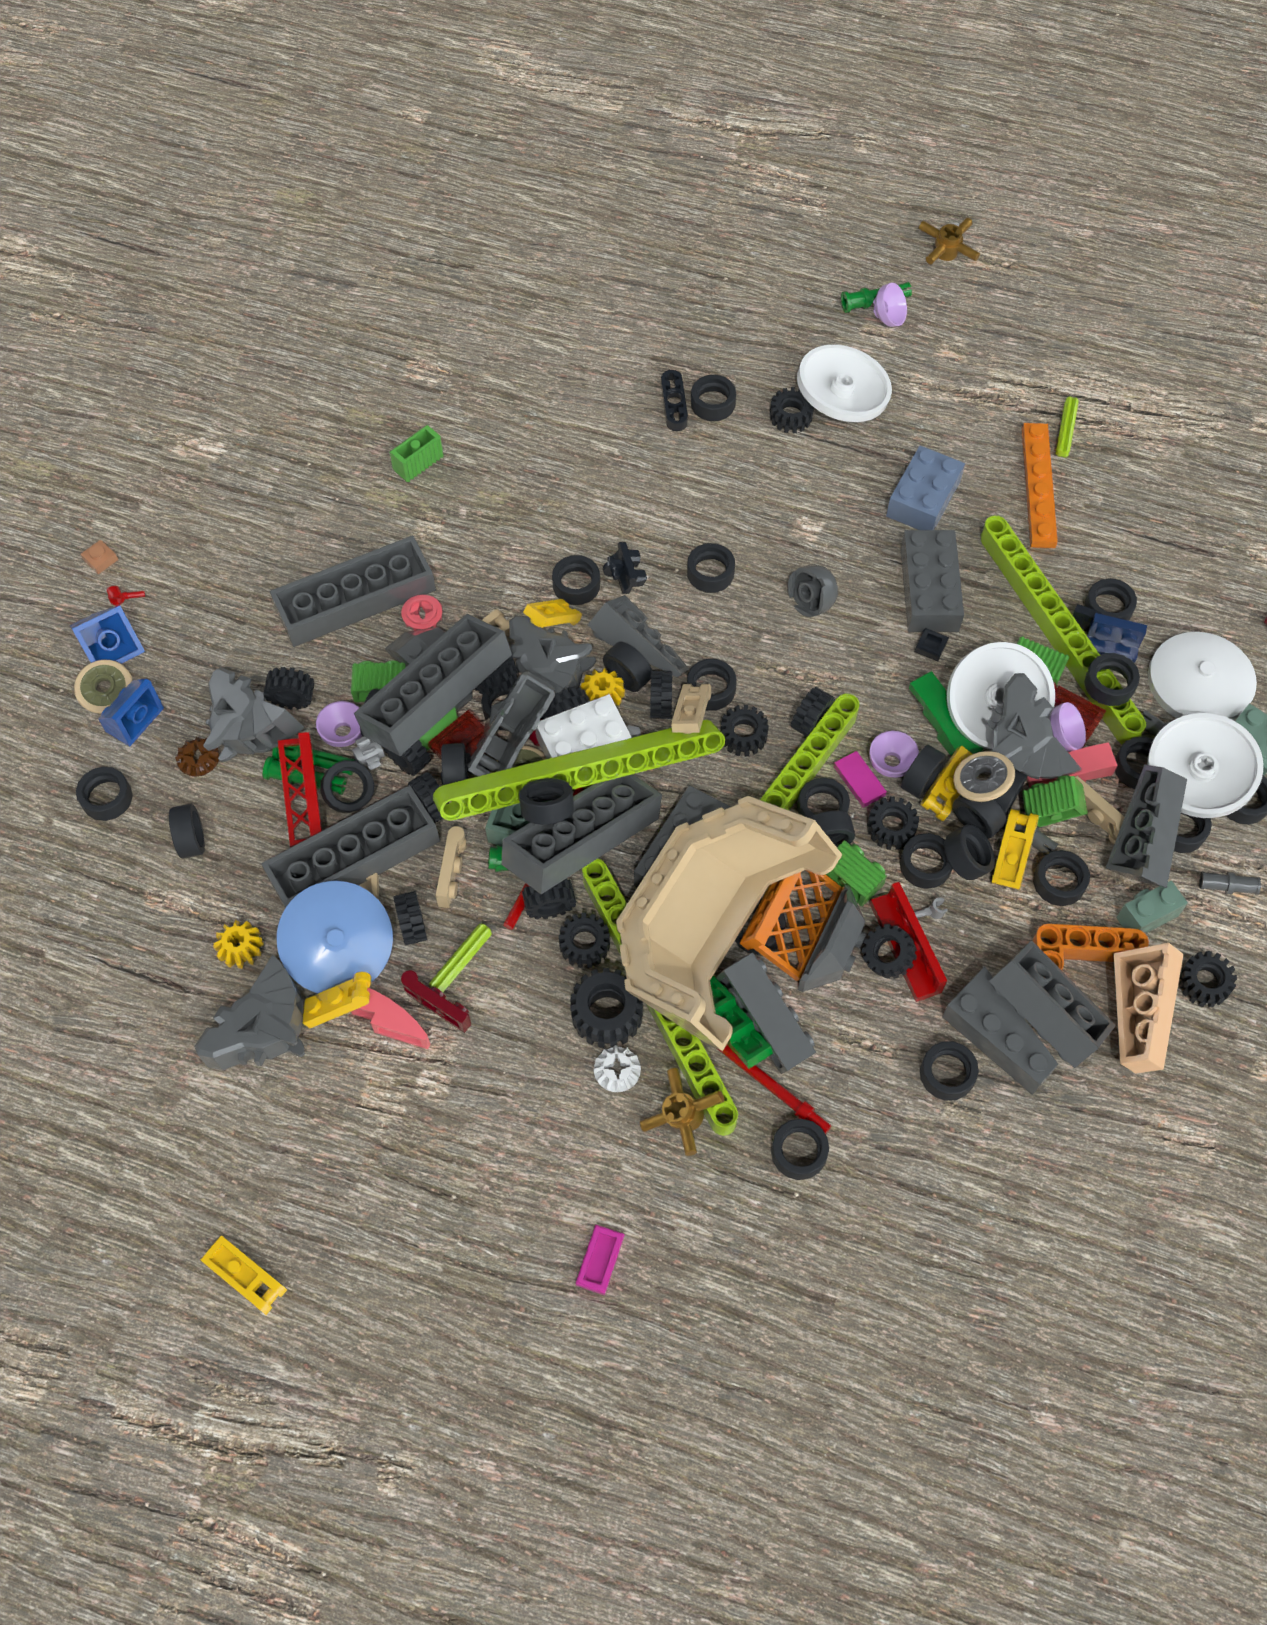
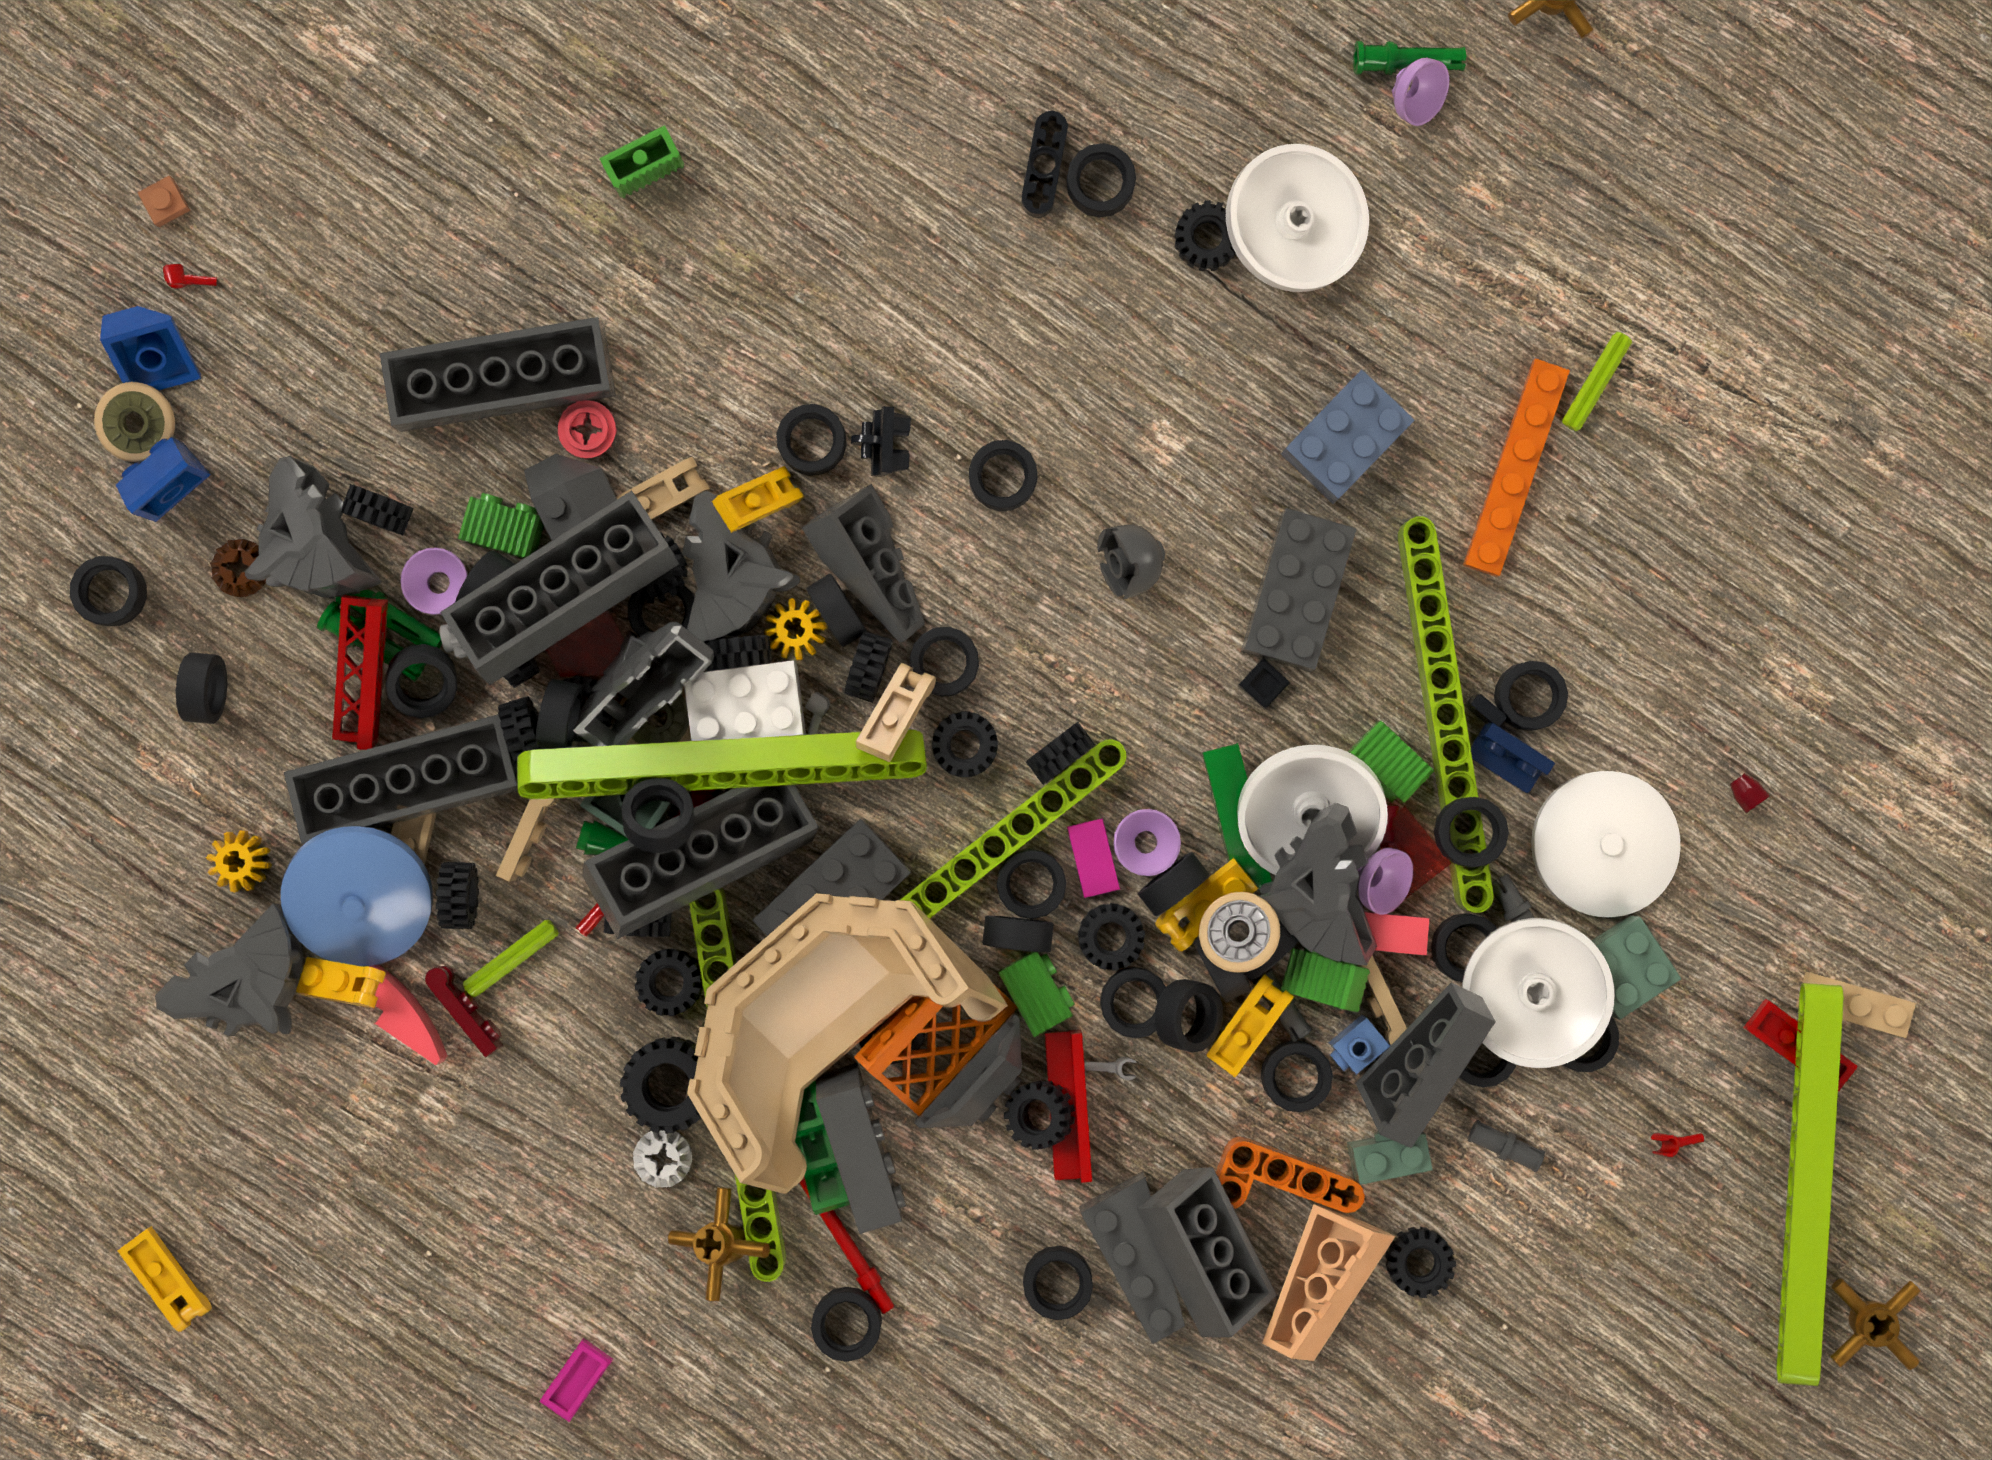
camera: 15 degrees right, 25 degrees up
(1096, 843) = (1357, 1045): none -> medium blue brick

